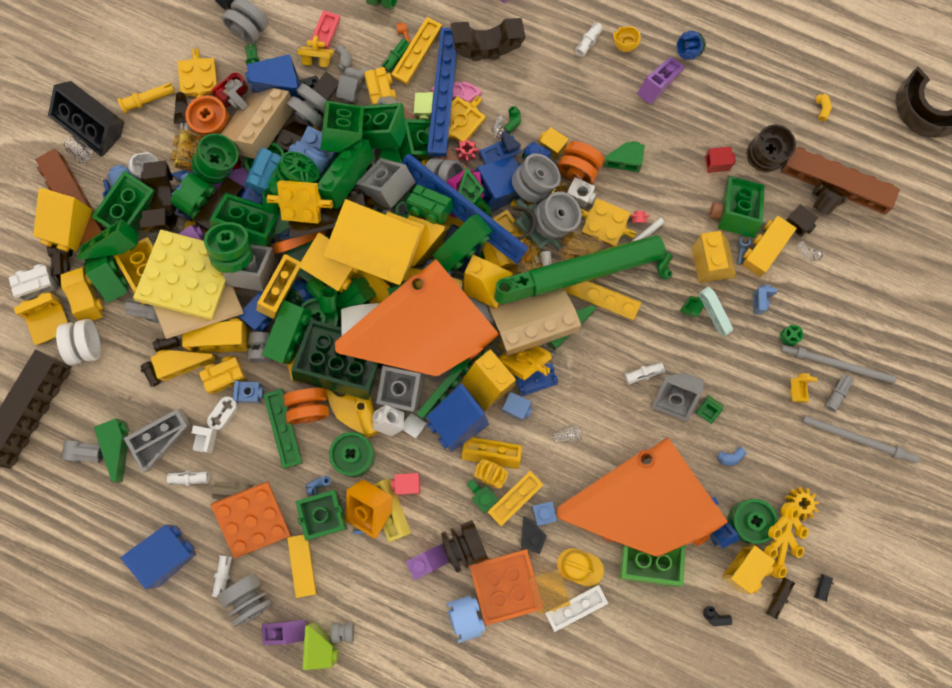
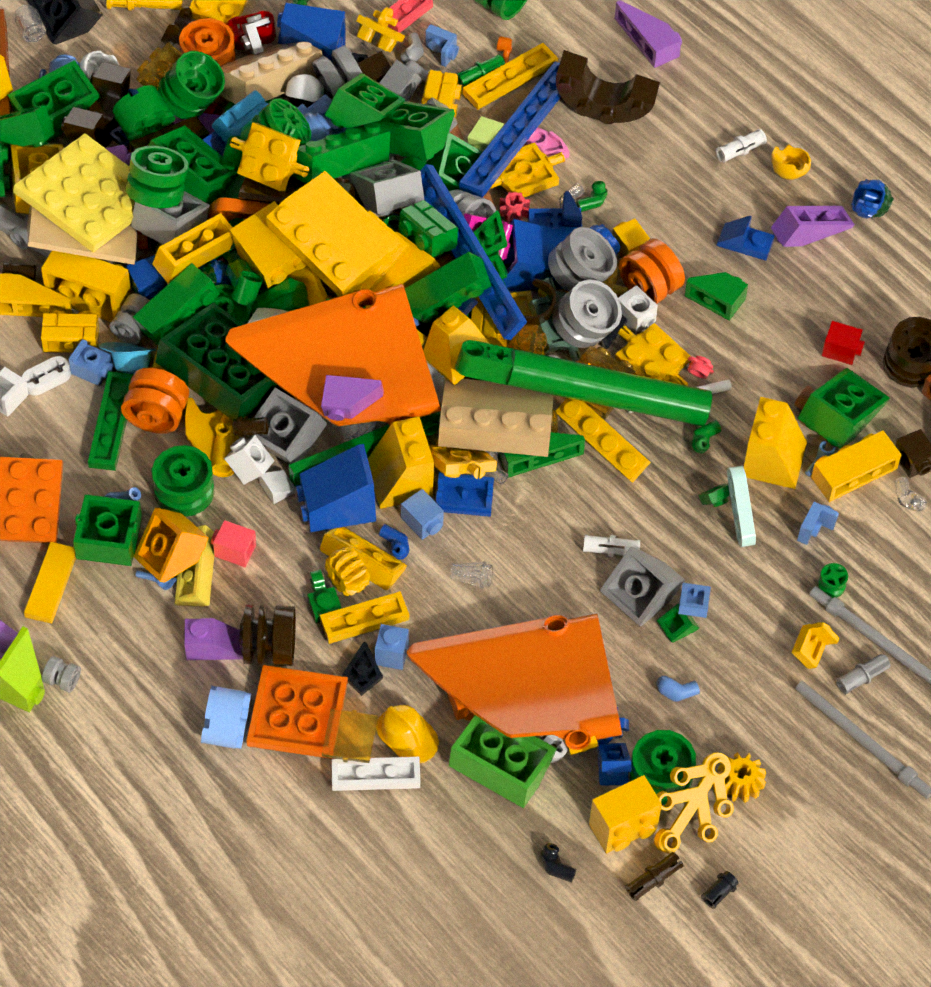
camera: 20 degrees right, 20 degrees down
(269, 375) = (127, 356): none -> medium azure piece
(291, 126) = (305, 88): none -> white hair
(361, 44) = (442, 42): none -> medium blue bracket
(379, 401) = (250, 426): none -> dark brown pin
(437, 358) = (349, 396): none -> medium lavender slope
(510, 432) = (398, 540): none -> blue arm
(623, 108) = (745, 240): none -> blue slope
(717, 393) = (694, 600): none -> medium blue bracket

